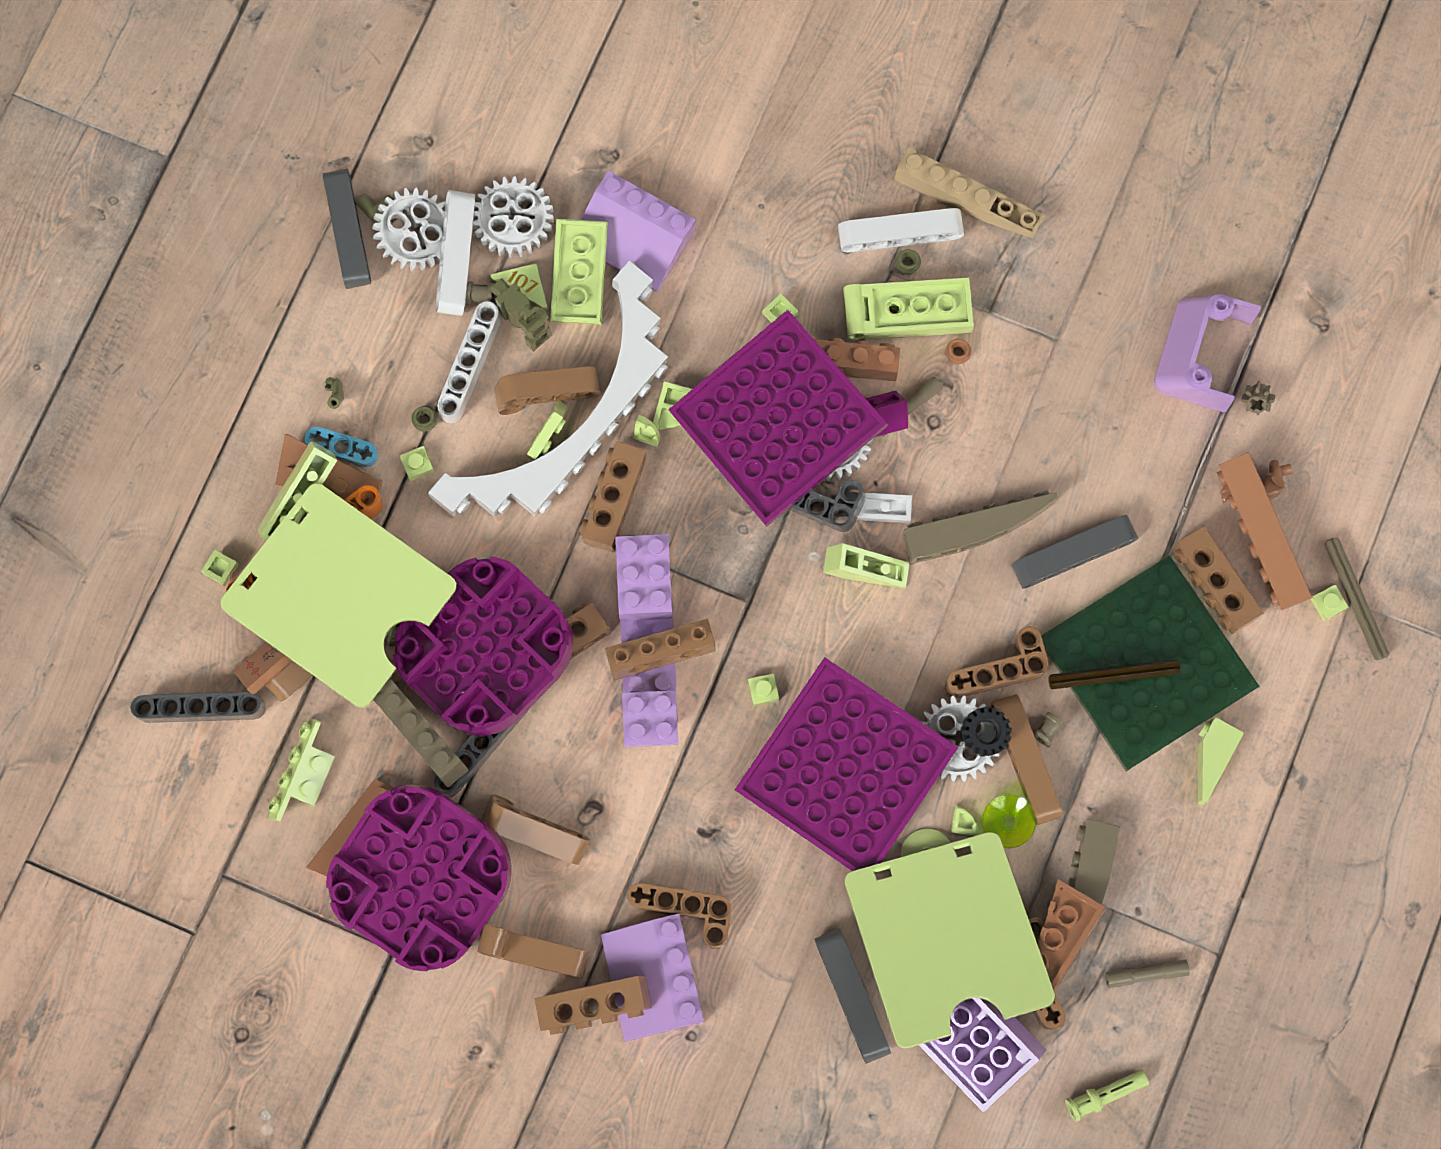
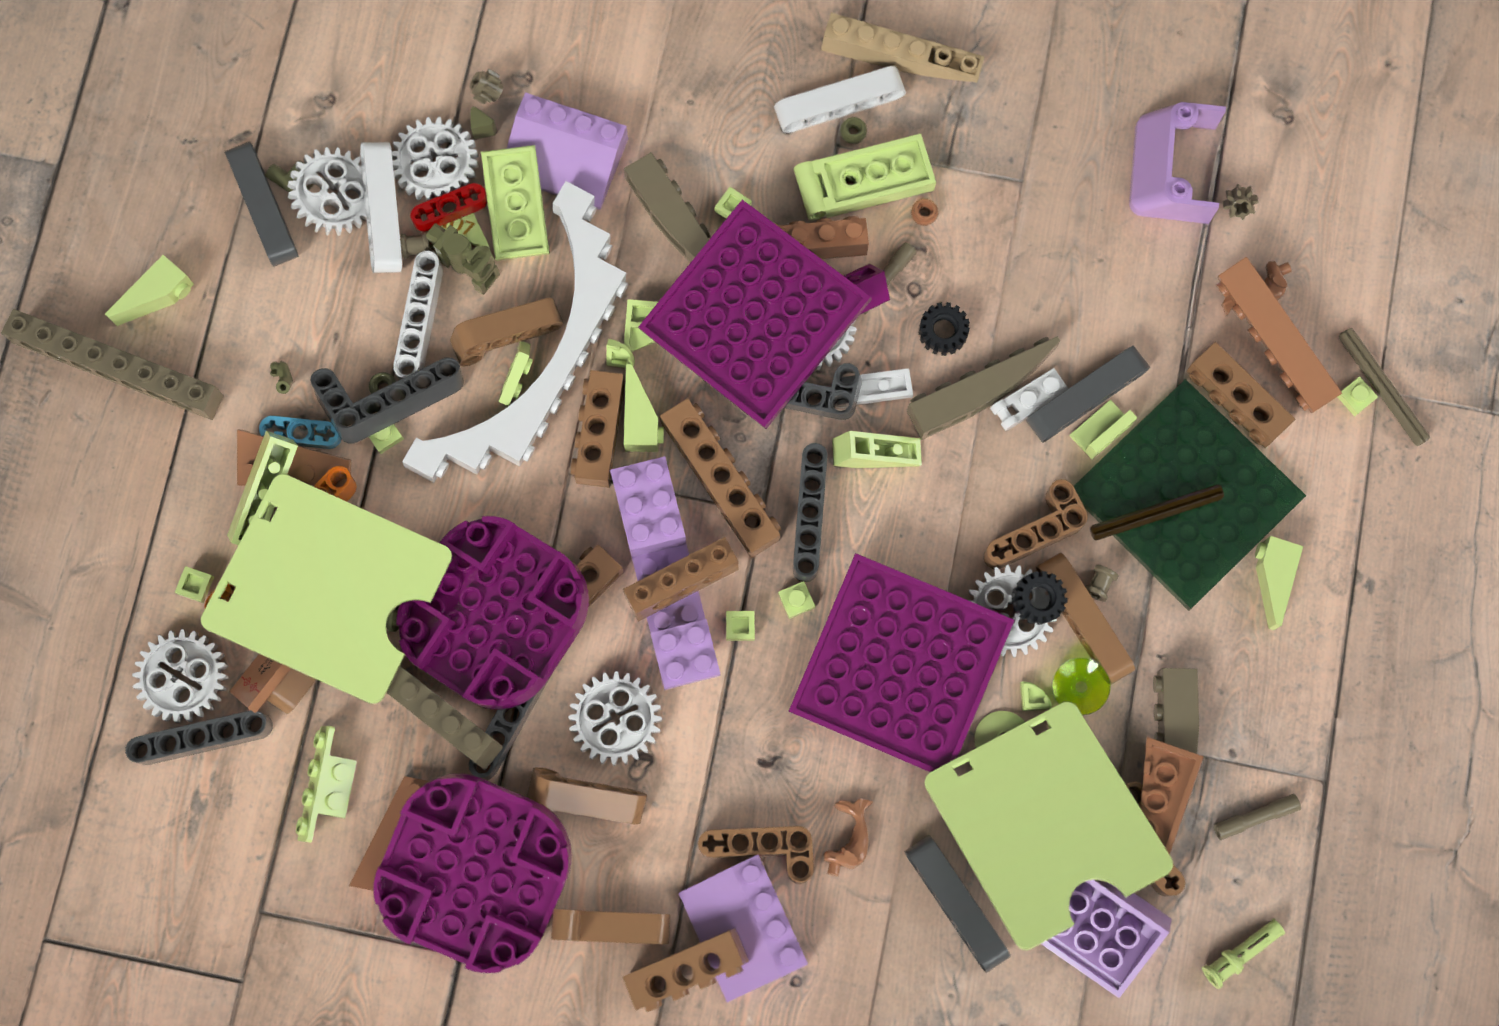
camera: 15 degrees left, 0 degrees up
(175, 665) = (166, 698): none -> white gear
(184, 352) = (112, 364): none -> dark tan brick
(234, 291) = (156, 289): none -> yellowish green slope
(424, 433) = (386, 400): none -> dark grey beam
(526, 270) = (446, 217): none -> red beam
(562, 192) = (481, 124): none -> olive slope
(574, 157) = (486, 86): none -> dark tan gear
(582, 788) = (603, 695): none -> white gear
(653, 497) = (640, 420): none -> yellowish green slope
(706, 703) = (740, 626): none -> yellowish green plate
(718, 301) = (665, 206): none -> dark tan slope
(735, 626) = (753, 539): none -> medium nougat brick
(768, 930) = (856, 850): none -> nougat animal
(796, 599) = (810, 499): none -> dark grey beam
(952, 449) = (950, 314): none -> black tyre
(1018, 545) = (1029, 399): none -> white plate
(1081, 587) = (1102, 429): none -> yellowish green panel

